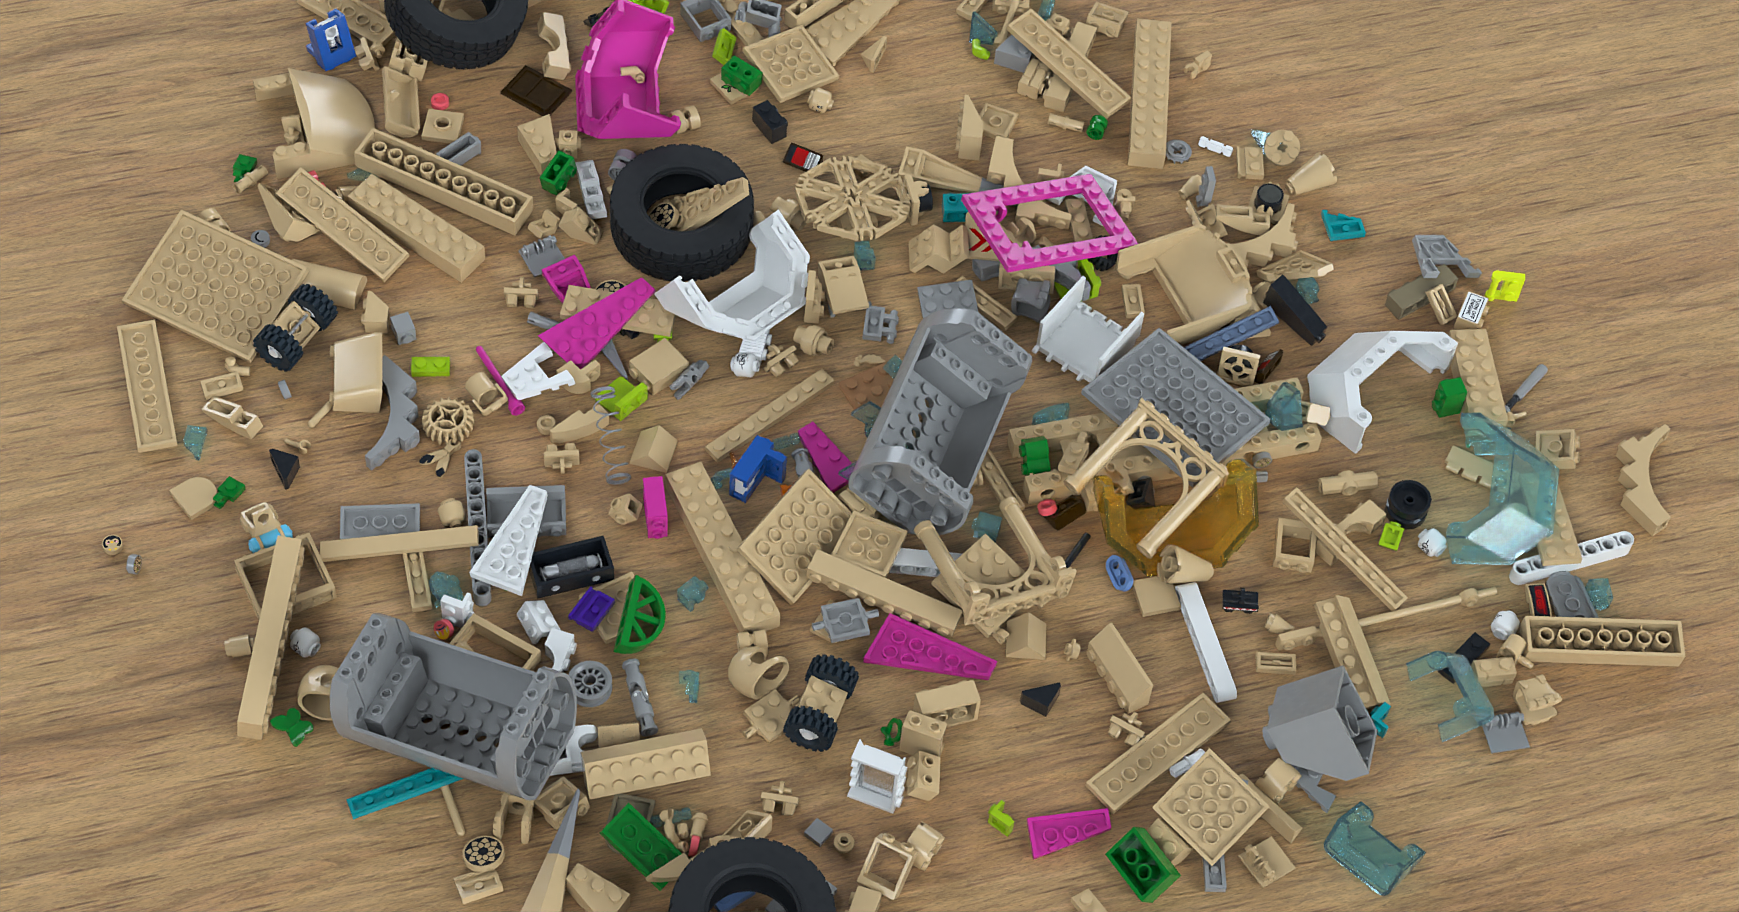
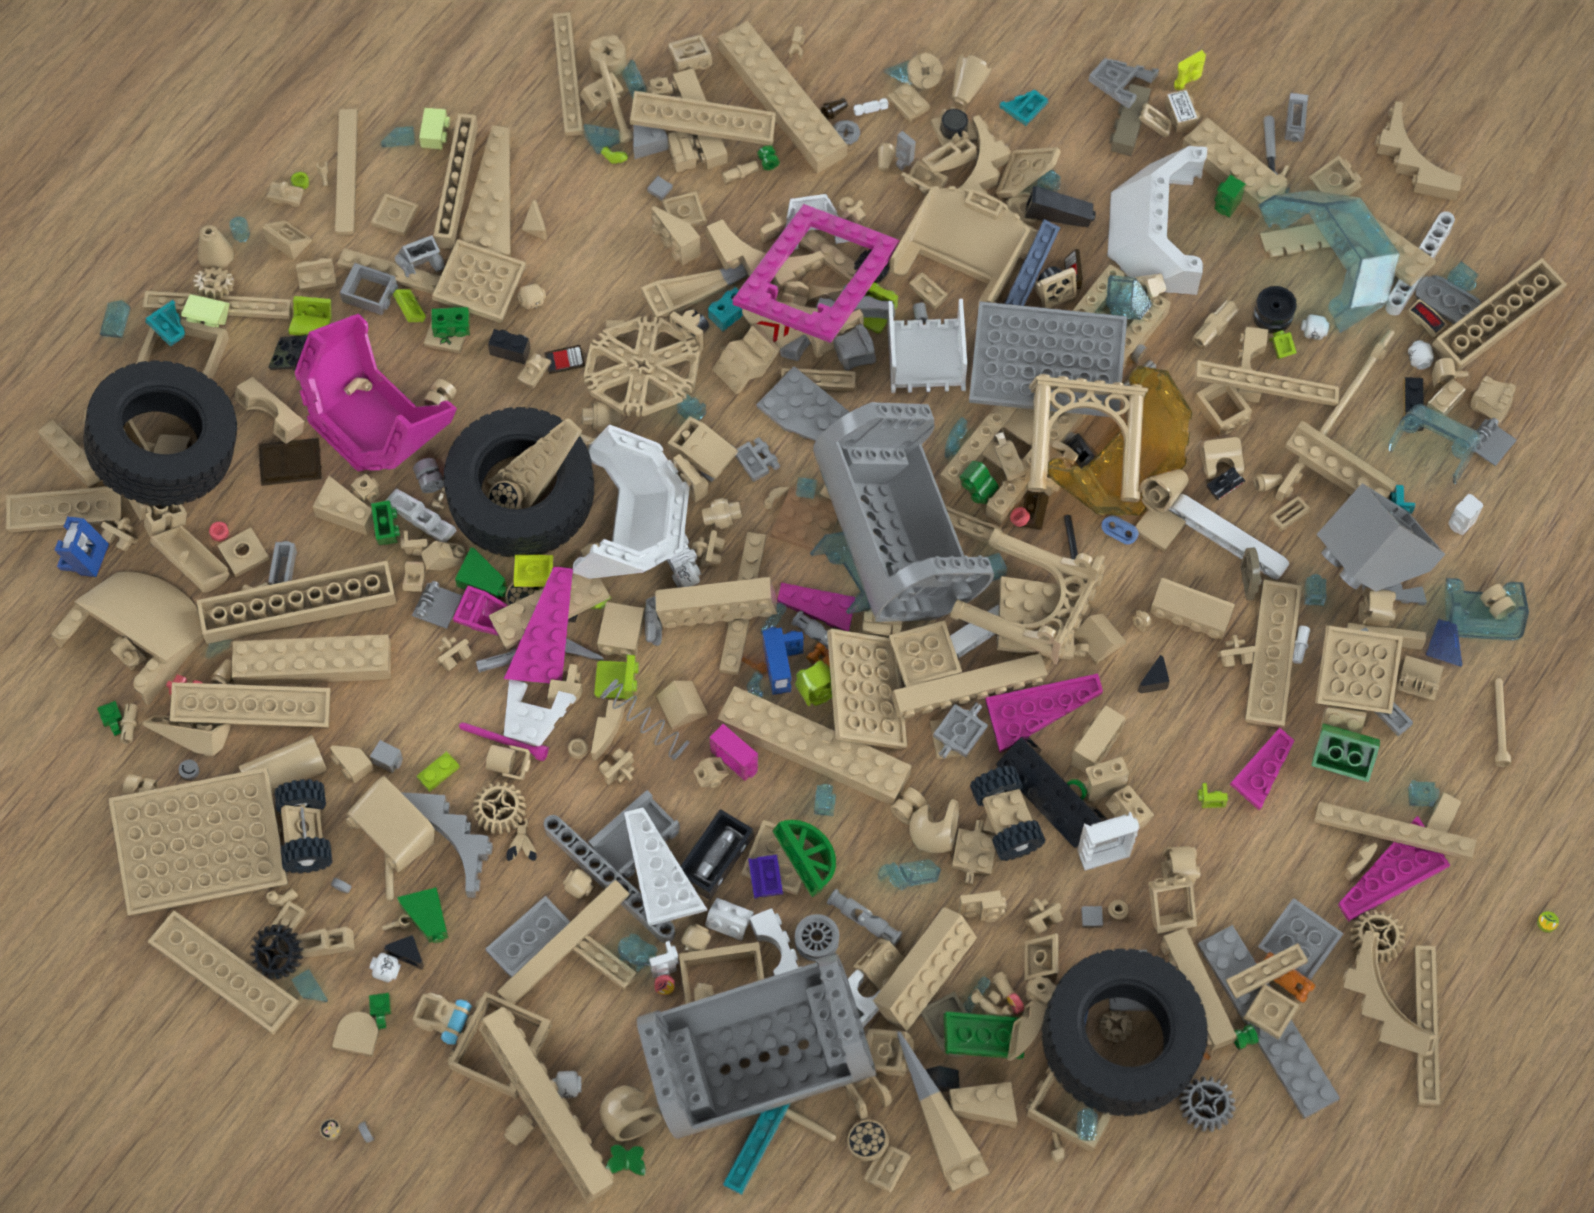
camera: 35 degrees left, 10 degrees up
(194, 396) = (270, 966): none -> black gear
(258, 465) = (385, 967): none -> white head
(324, 452) = (426, 913): none -> green slope
(499, 614) = (695, 938): none -> tan head
(585, 854) = (944, 1078): none -> black slope
(592, 257) = (481, 575): none -> green slope
(629, 274) = (532, 570): none -> neon yellow plate
(712, 696) = (920, 872): none -> clear light blue slope
(738, 753) = (988, 904): none -> tan plate
(744, 393) = (716, 602): none -> tan brick
(761, 501) = (815, 684): none -> lime brick
(771, 149) = (533, 370): none -> tan hips
(873, 706) = (1049, 791): none -> black bracket
(992, 94) = (659, 188): none -> light grey tile
(1111, 311) = (920, 312): none -> light grey hinge
(1183, 127) = (833, 108): none -> dark brown cone
(1193, 675) = (1250, 572): none -> dark tan plate
(1239, 732) = (1313, 595): none -> clear light blue brick
(1259, 574) = (1221, 450): none -> tan piece
(1313, 849) = (1445, 643): none -> clear blue wing
(1389, 848) = (1496, 599): none -> tan wheel
(1423, 765) = (1465, 514): none -> white brick
(1567, 381) = (1296, 117): none -> light grey window

